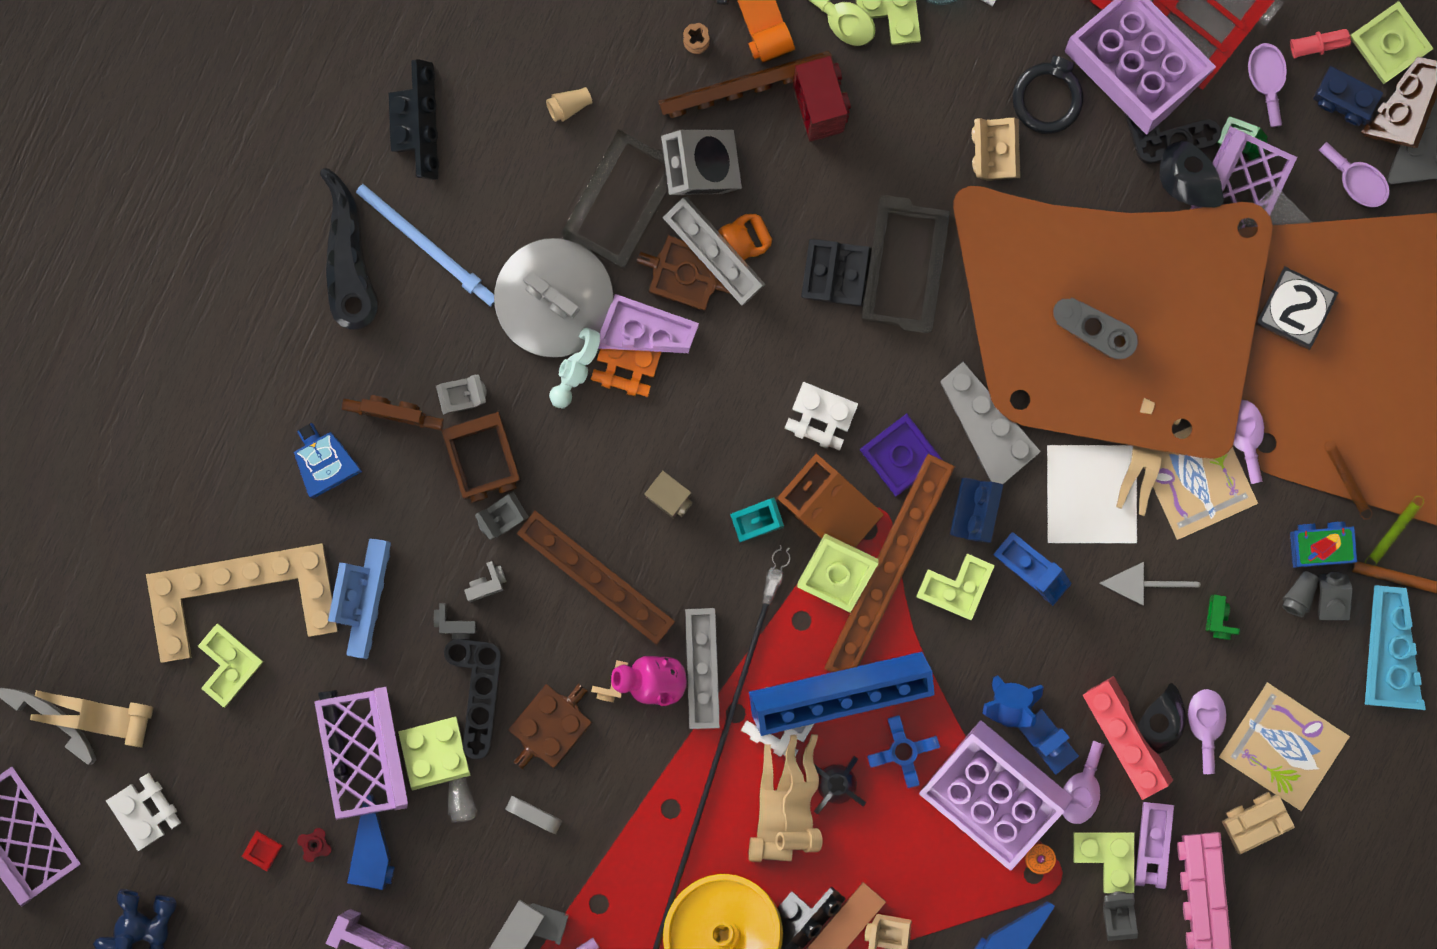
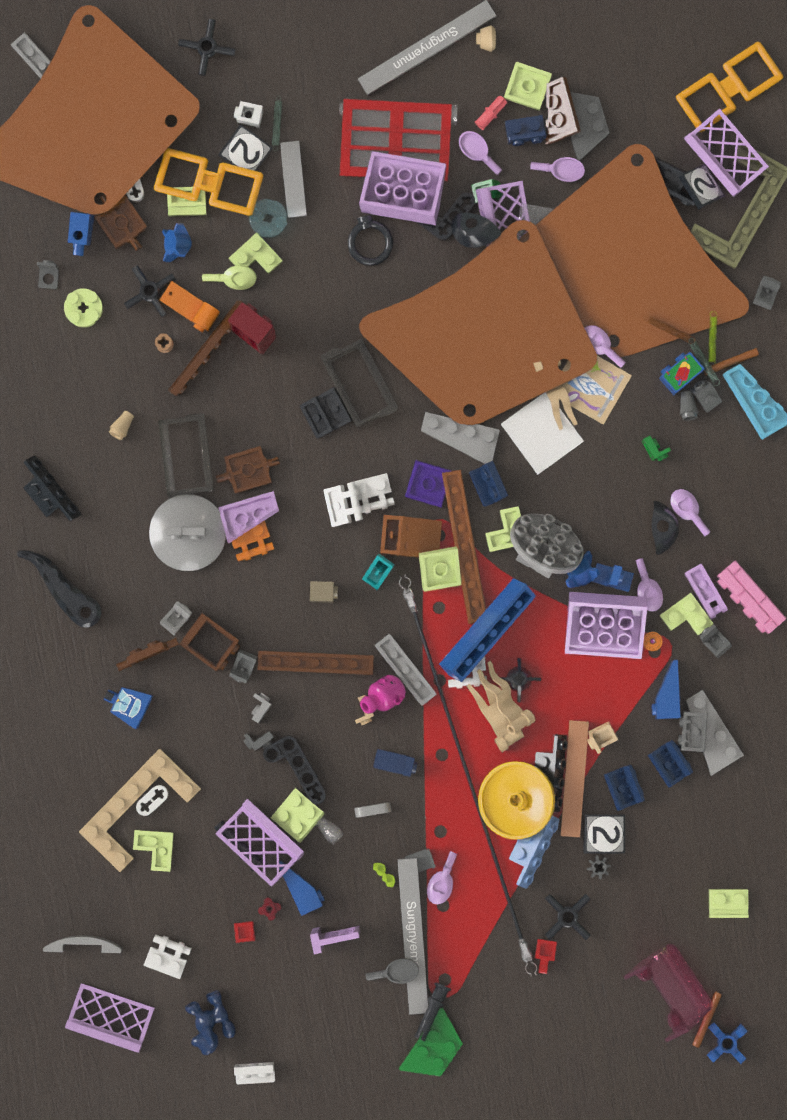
camera: 35 degrees left, 0 degrees up
(99, 717) = (109, 924): tan flag -> none
(266, 594) = (149, 796): none -> white beam
(358, 597) = (199, 763): medium blue bracket -> none
(470, 281) = (138, 555): light blue bar -> none
(489, 897) = (387, 878): none -> lime piece
(550, 726) = (348, 757): reddish brown plate -> none
(574, 369) = (226, 562): light aqua piece -> none
(604, 776) = (395, 763): none -> dark blue bracket
(701, 162) = (213, 406): light grey brick -> none
(714, 251) = (254, 447): light grey plate -> none
(740, 240) = (262, 434): orange piece -> none
(767, 400) = (338, 507): none -> white plate
(907, 765) = (535, 644): blue pin -> none
(993, 639) = (545, 544): none -> light grey bracket
(996, 149) = (362, 288): tan bracket -> none
(1033, 568) = (539, 493): blue bracket -> none
(1072, 317) = (465, 345): dark grey piece -> none
(1131, 583) = (597, 465): light grey piece -> none
(1137, 757) = (644, 543): coral arch -> none
(1257, 823) = (751, 541): tan brick -> none
(1284, 746) = (736, 491): tan sticker -> none
(1297, 308) = (578, 259): slope -> none
(1364, 550) = (702, 362): none -> sand green piece

